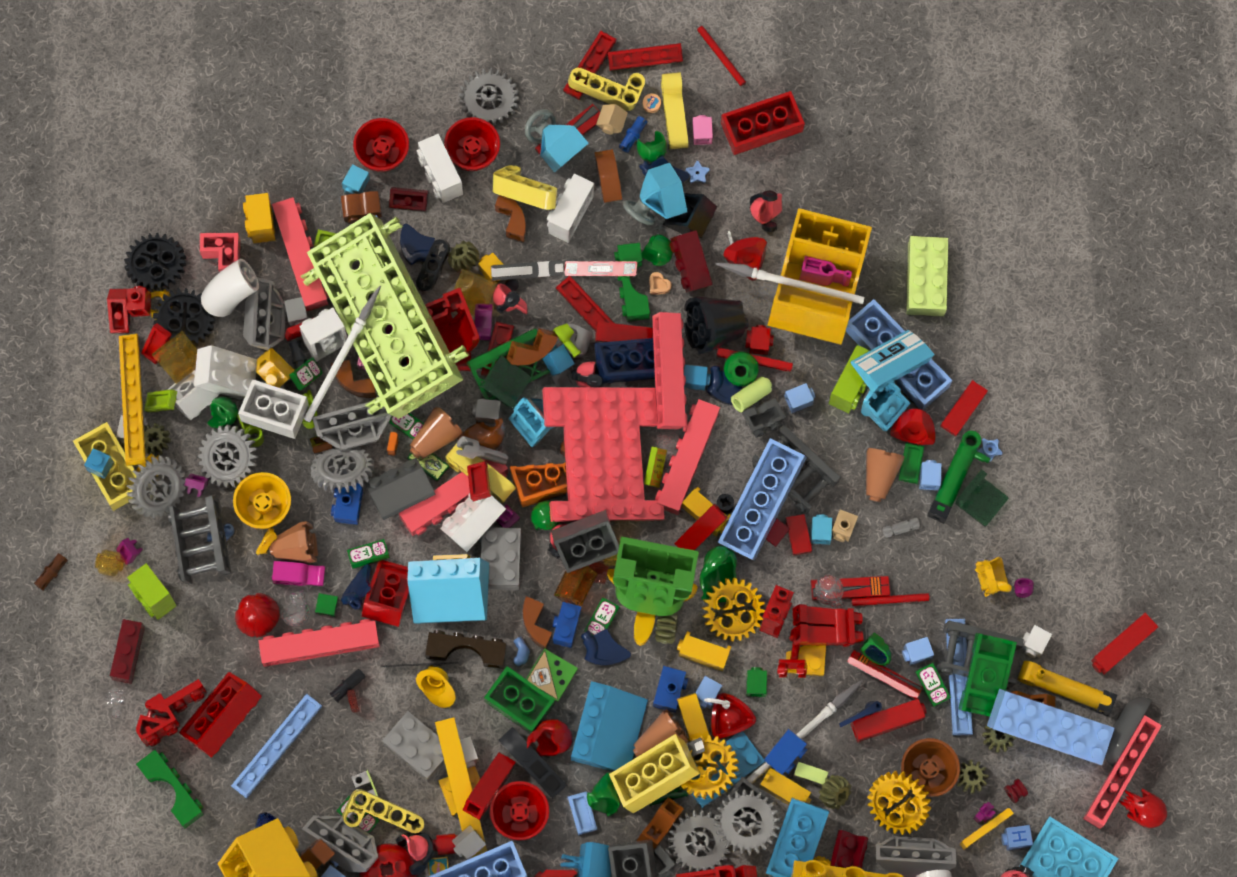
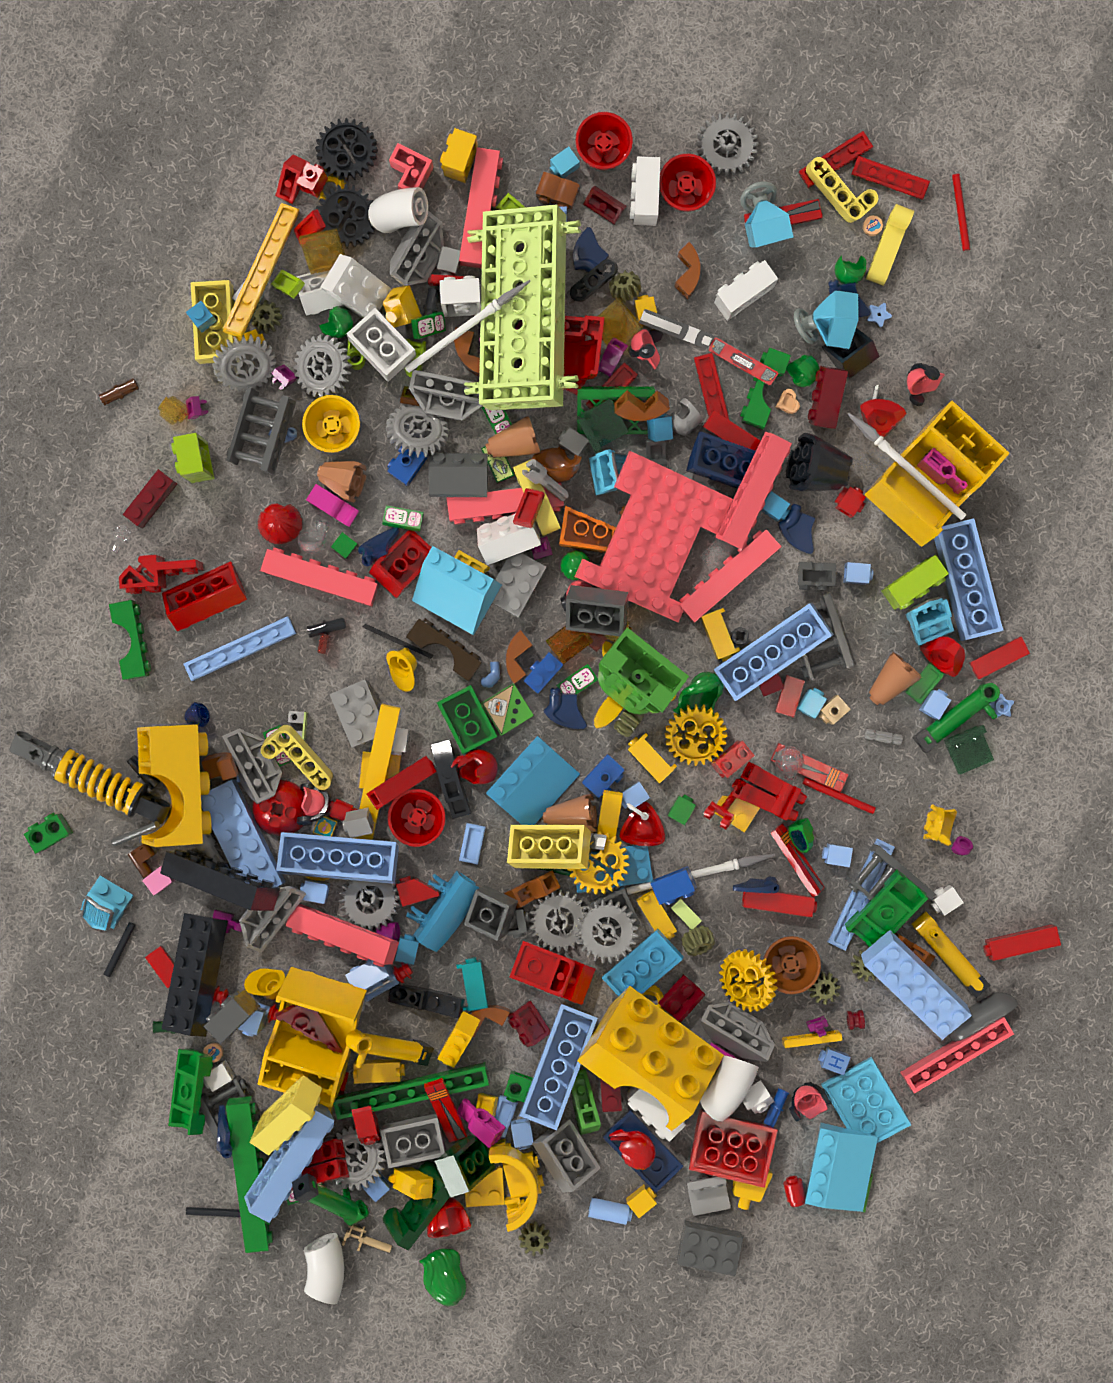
camera: 30 degrees right, 15 degrees up
(268, 538) = (319, 462): yellow piece -> none
(392, 444) = (474, 429): orange tile -> none
(510, 184) = (703, 242): light yellow beam -> none
(564, 334) = (677, 408): lime bar -> none
(587, 375) = (677, 457): cap -> none
(604, 796) = (497, 839): green hat -> none
(608, 175) = (796, 276): dark orange brick -> none
(611, 119) = (827, 223): tan brick -> none
(633, 134) = (840, 247): blue pin -> none
(655, 467) = (695, 571): lime tile -> none
(701, 529) = (705, 650): red tile -> none
(702, 130) = (905, 276): bright pink brick -> none
(741, 359) = (822, 512): green piece -> none
(751, 394) = (816, 548): yellowish green brick -> none
(762, 123) = (963, 297): red brick -> none
(762, 361) = (836, 517): red tile -> none
(892, 360) = (959, 586): medium azure slope -> none
(927, 276) = (1034, 519): yellowish green brick -> none
(932, 684) = (834, 890): tile -> none
(1148, 814) = (958, 1098): red helmet -> none

